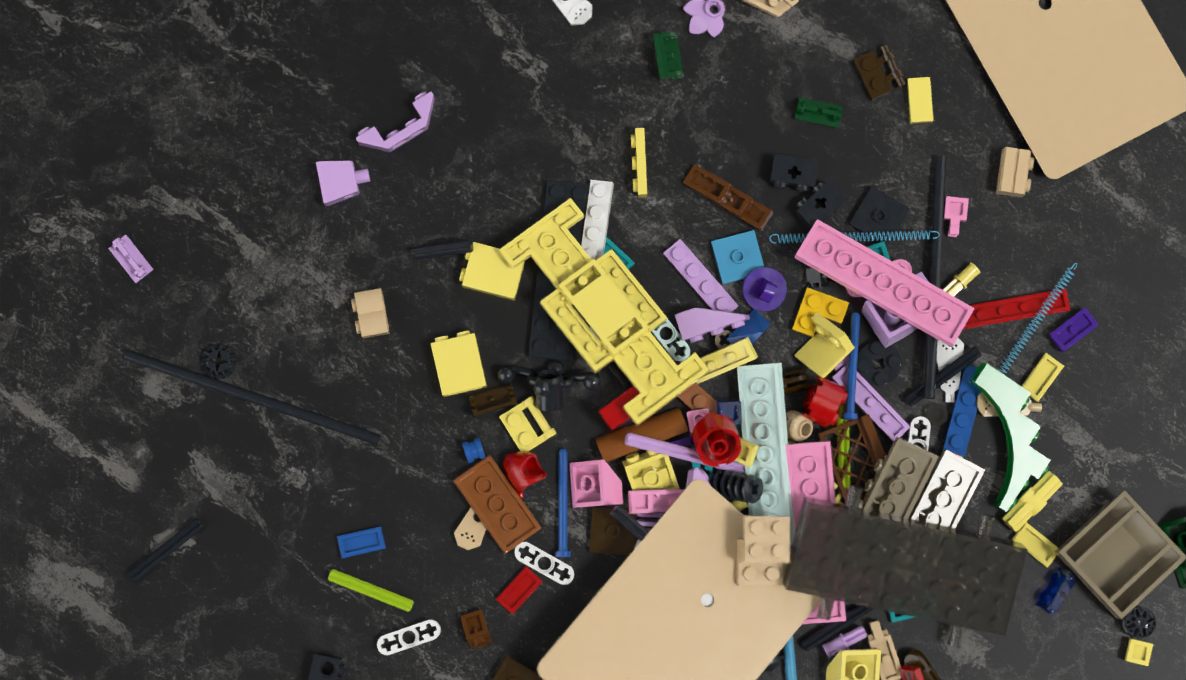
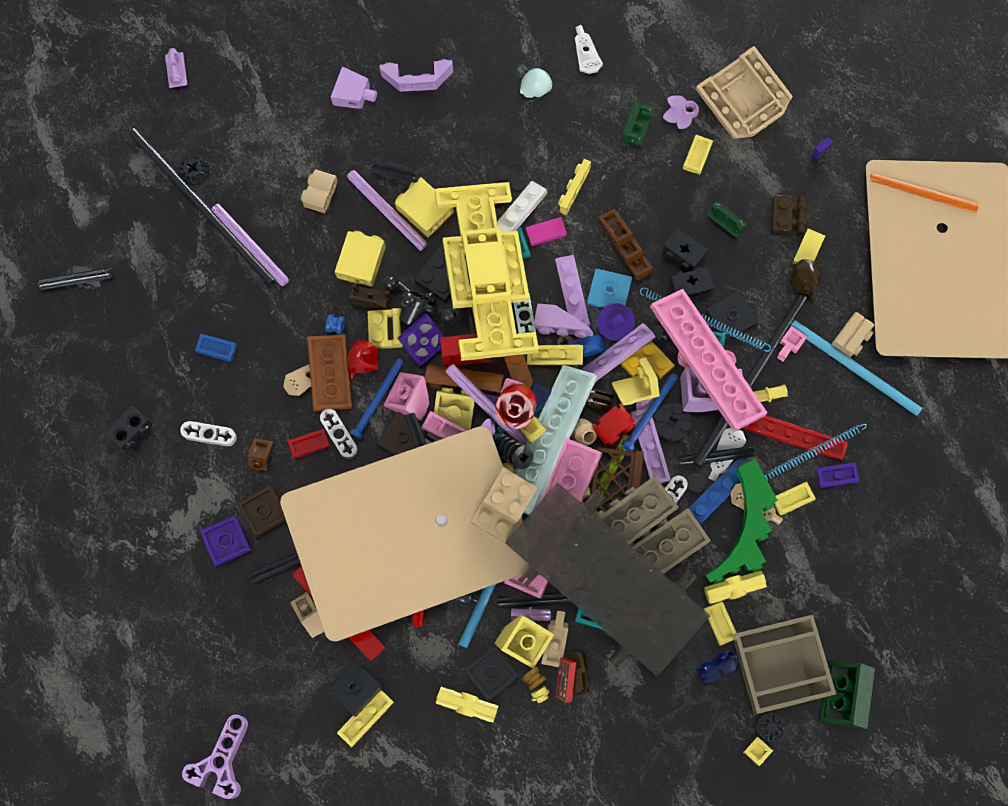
camera: 35 degrees right, 10 degrees down
(330, 411) = (280, 277): none -> lavender axle
(370, 590) = (200, 383): lime axle -> none
(454, 294) = (387, 210): none -> lavender axle
(533, 66) = (535, 83): none -> light aqua hair
(576, 418) = (421, 339): none -> dark purple piece
(636, 227) = (546, 231): none -> dark pink tile
(749, 55) = (697, 154): none -> light yellow tile
(785, 320) = (620, 351): none -> lavender plate
(936, 135) = (806, 277): none -> dark brown piece
(1034, 204) = (858, 369): none -> medium azure piece

